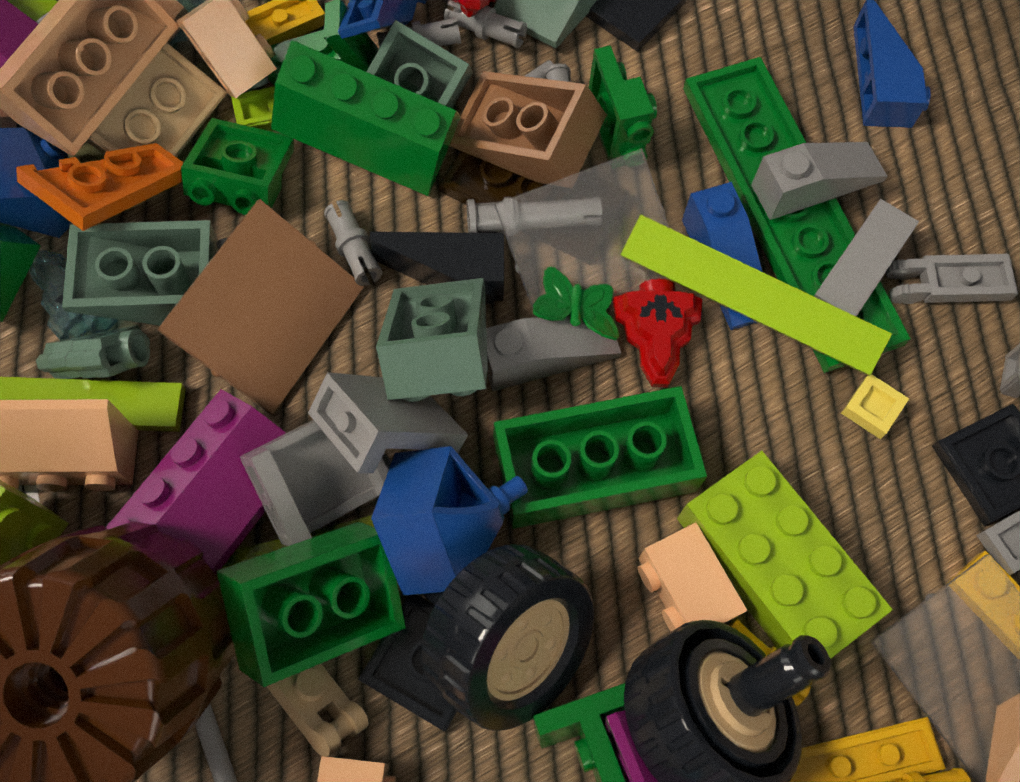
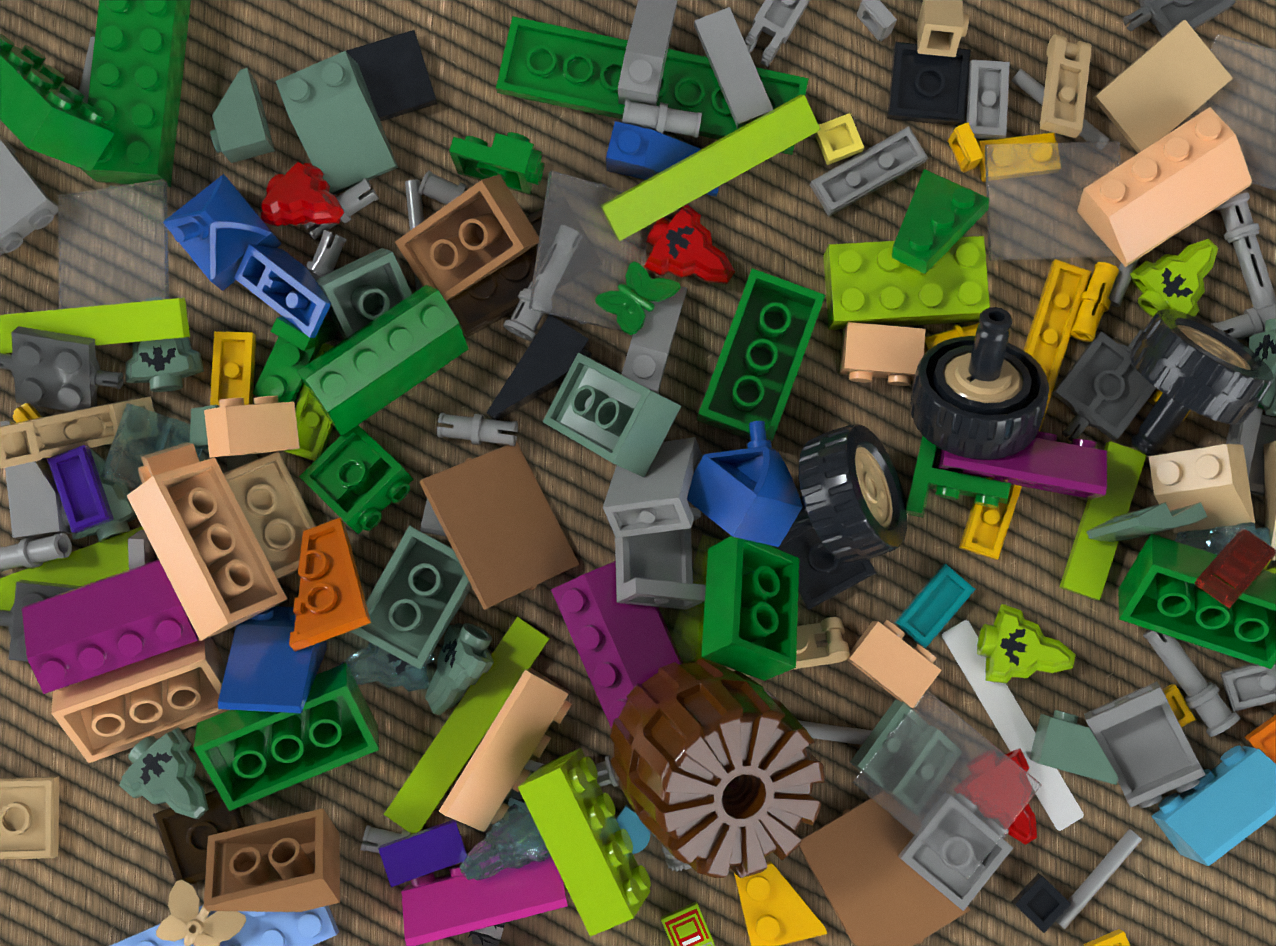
camera: 55 degrees left, 15 degrees up
(766, 224) = (662, 118): none -> light grey pin
(867, 458) = (868, 171): none -> light grey tile
(868, 546) = (936, 220): none -> green wing
(967, 538) = (965, 147): none -> yellow tile

